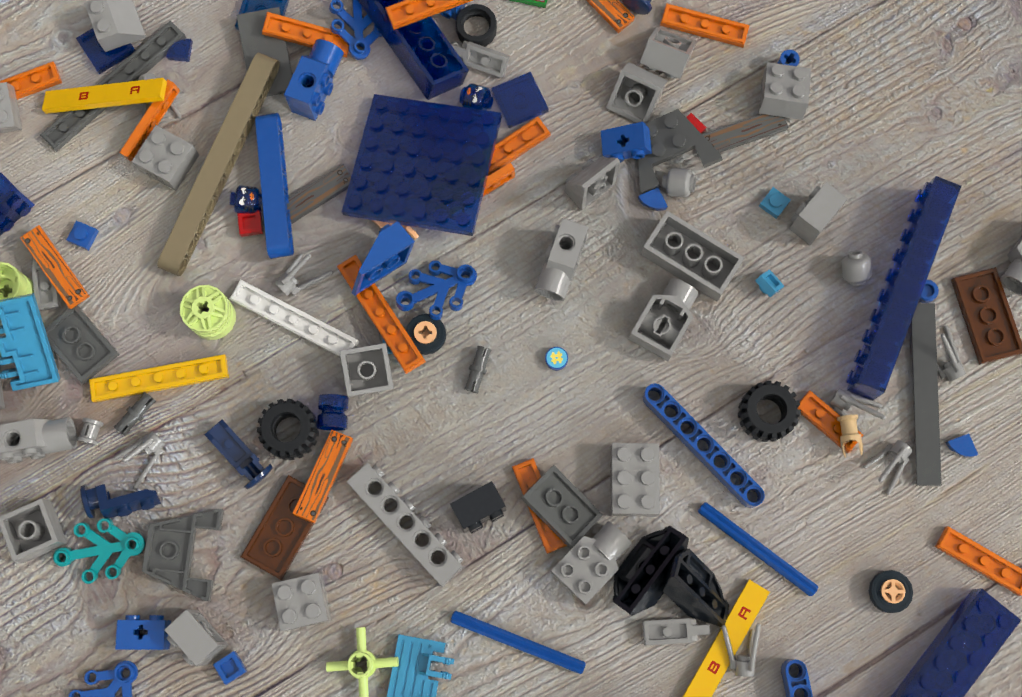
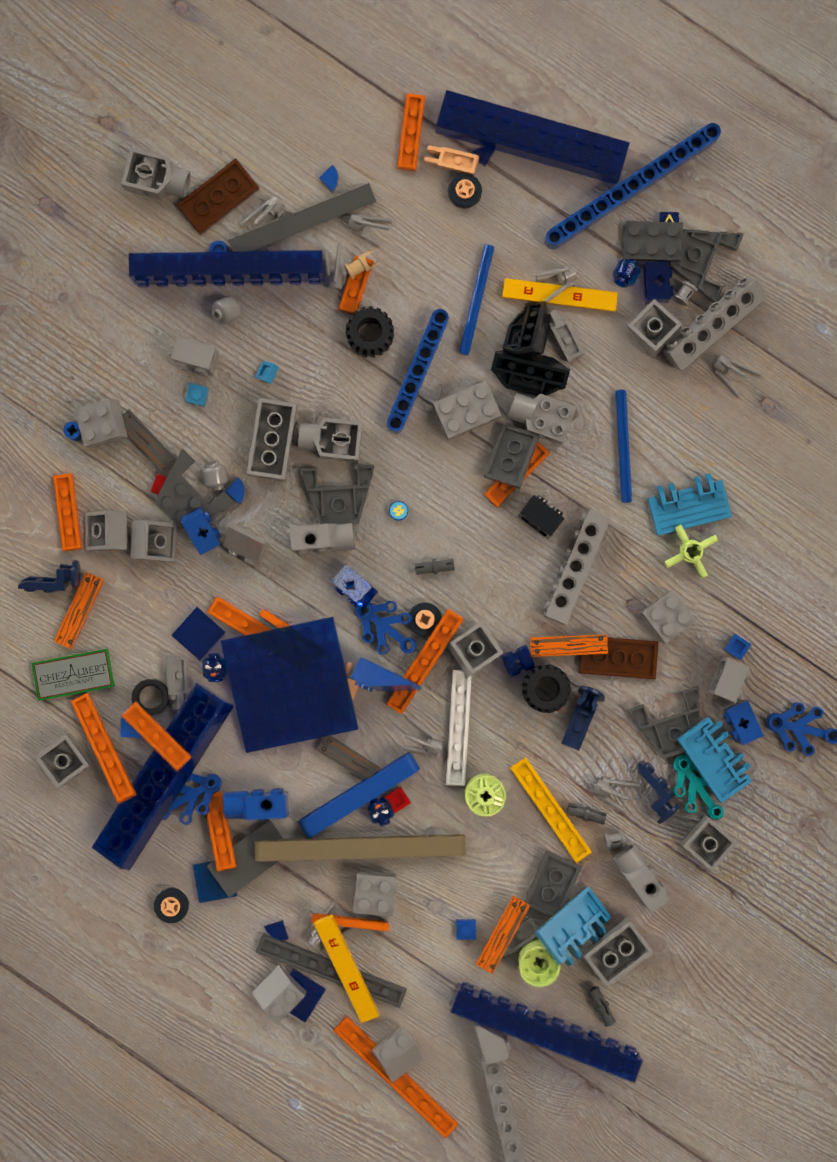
camera: 120 degrees left, 10 degrees up
(116, 579) = (714, 761): none -> dark azure hinge
(494, 273) = (363, 591): none -> clear blue brick
(592, 298) = (338, 504): none -> dark grey wing
(925, 632) = (484, 154): none -> clear blue tile
(932, 594) = (453, 160): none -> light nougat hinge

